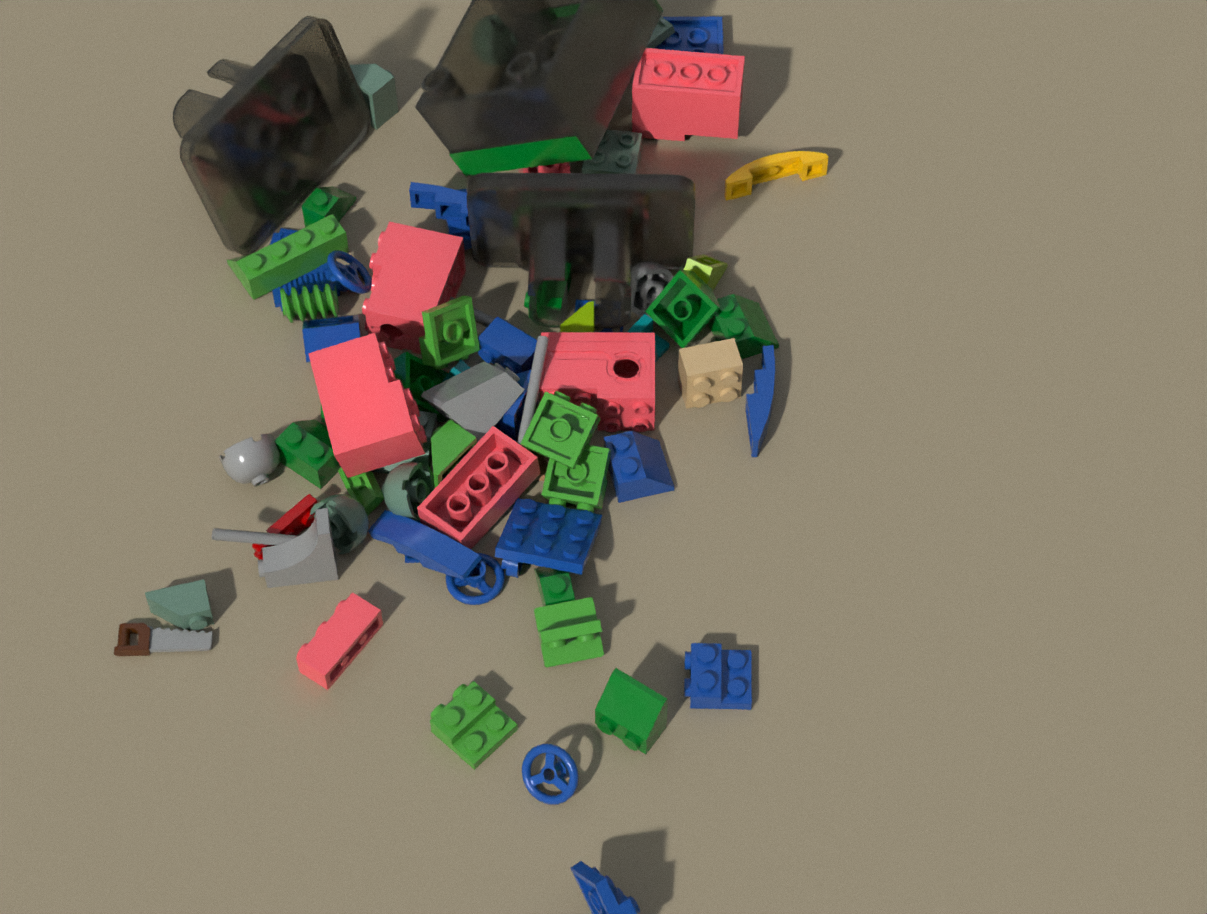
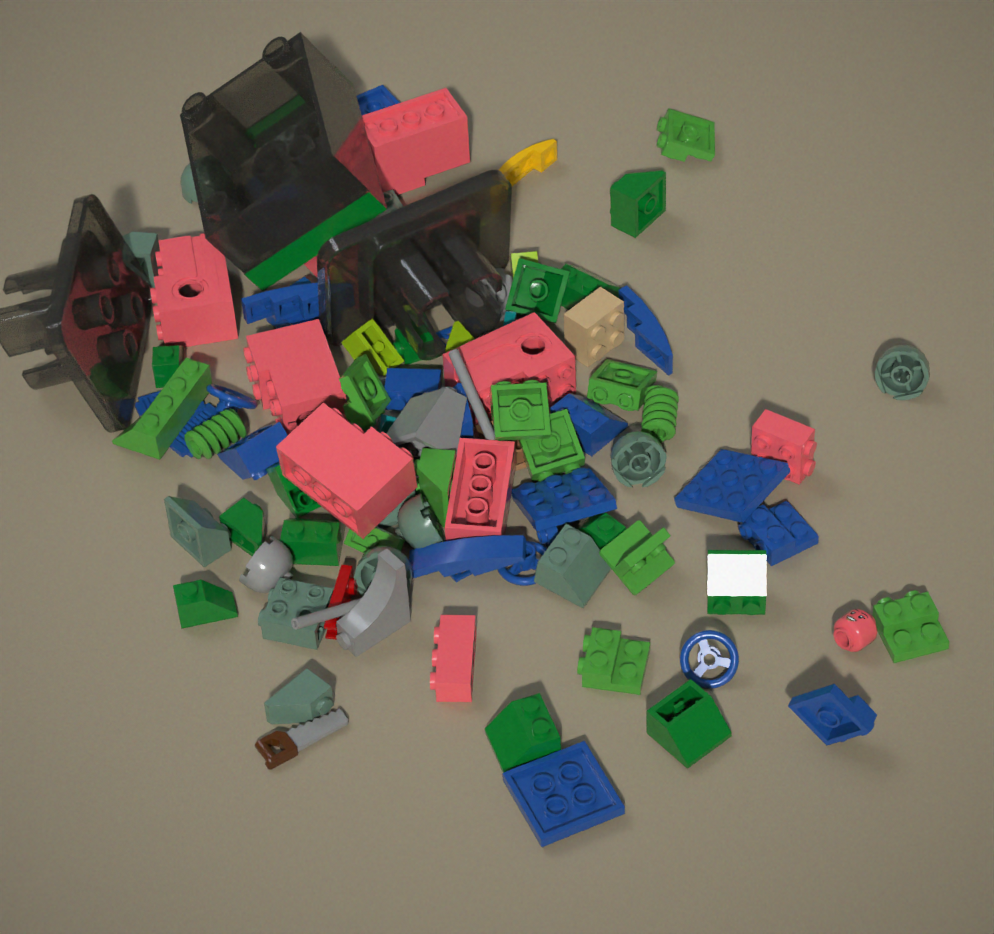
camera: 30 degrees left, 10 degrees down
(177, 463) = (203, 603): none -> green slope
(224, 388) = (197, 530): none -> sand green slope
(243, 509) = (289, 601): none -> sand green brick
(269, 407) = (245, 525): none -> green slope
(327, 829) = (563, 793): none -> blue plate
(338, 753) = (523, 733): none -> green slope
(388, 151) = (192, 293): none -> coral piece
(480, 828) = (687, 724): none -> green slope
(504, 608) = (572, 567): none -> sand green slope
(505, 289) = (373, 342): none -> lime slope
(645, 531) = (638, 459): none -> sand green cylinder
(694, 445) = (620, 384): none -> bright green plate
(702, 496) = (660, 412): none -> bright green piece
(704, 822) = (855, 630): none -> coral head
(710, 607) = (732, 485): none -> blue plate
(761, 847) = (910, 626): none -> bright green plate
(782, 595) = (785, 441): none -> coral brick
(853, 261) = (637, 201): none -> green slope
(957, 213) = (686, 136): none -> bright green plate
(961, 577) = (902, 372): none -> sand green cylinder

